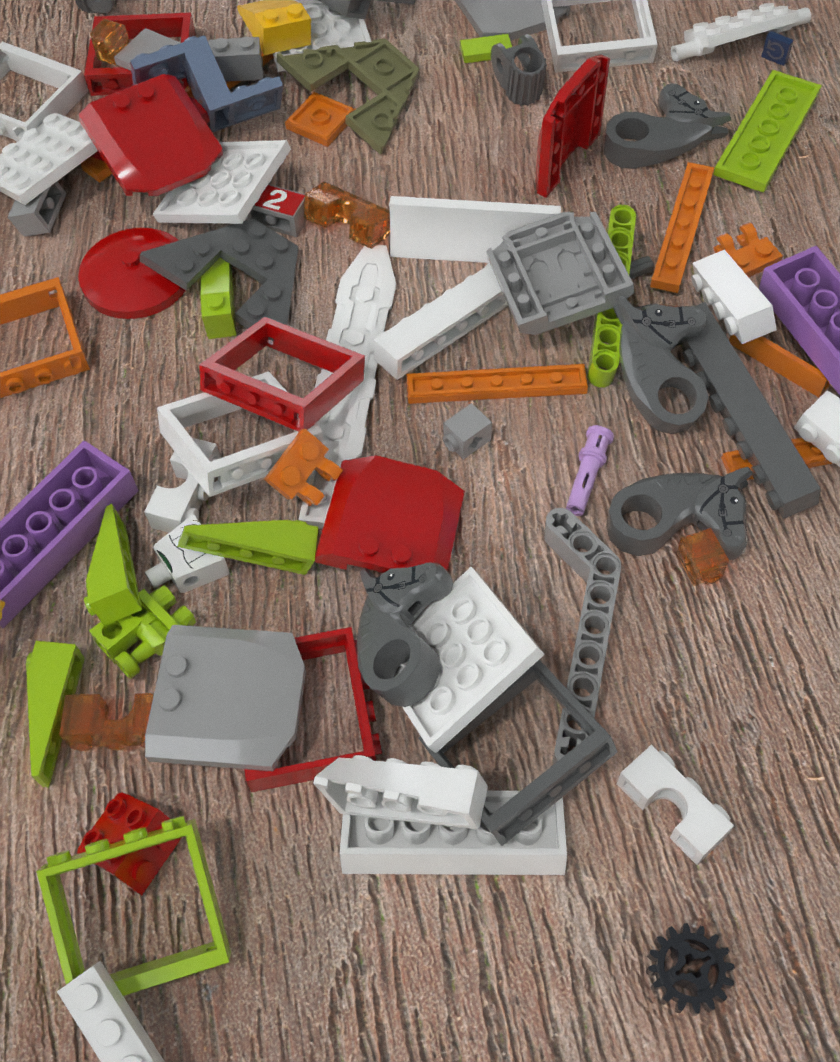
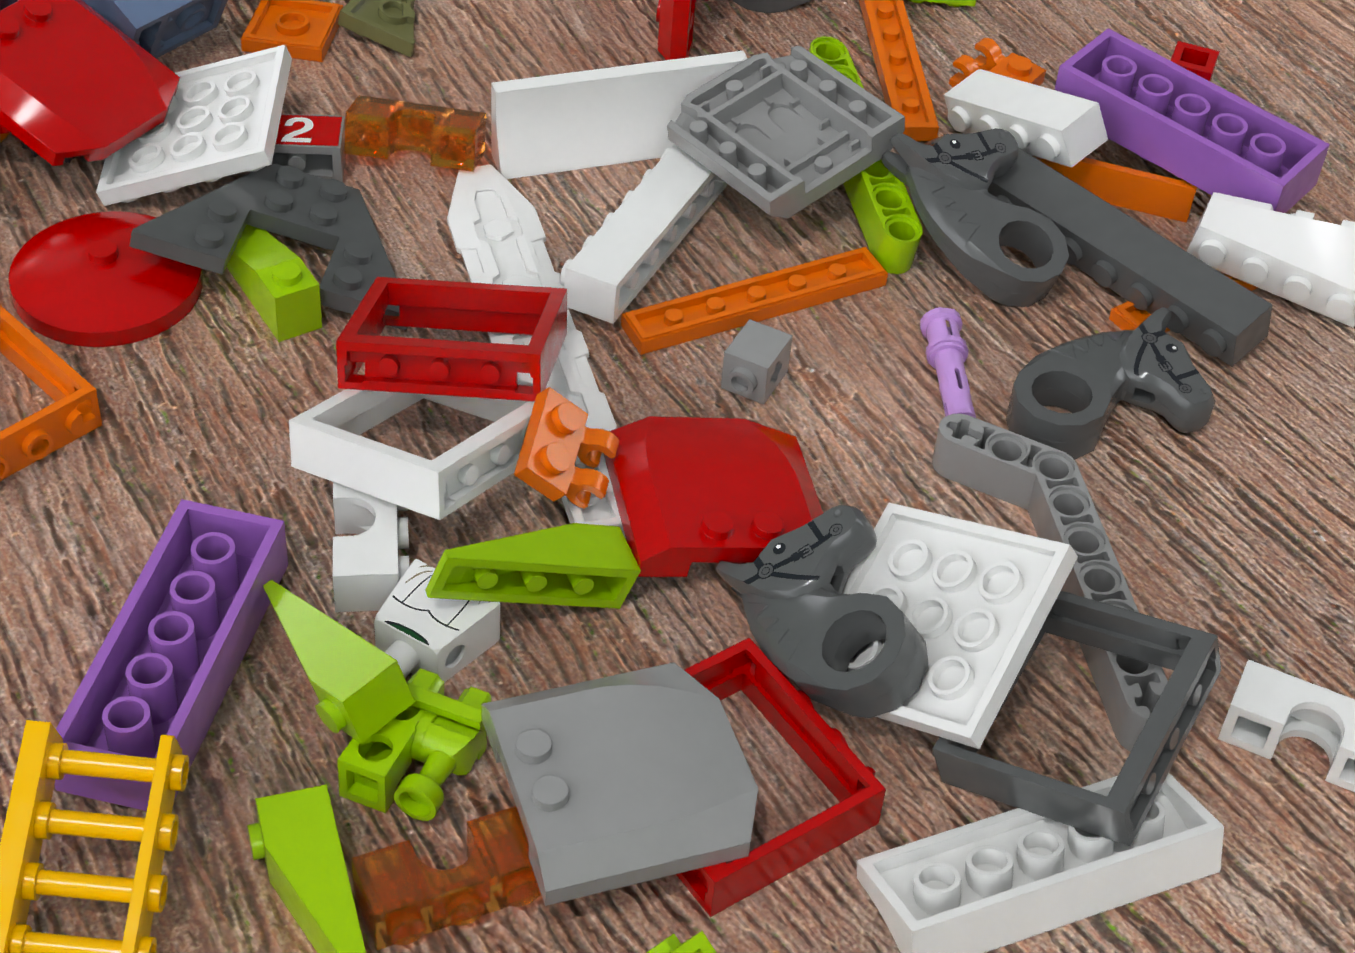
camera: 30 degrees left, 15 degrees down
(405, 791) = (974, 806): white wedge -> none
(702, 557) = (1165, 432): clear orange brick -> none

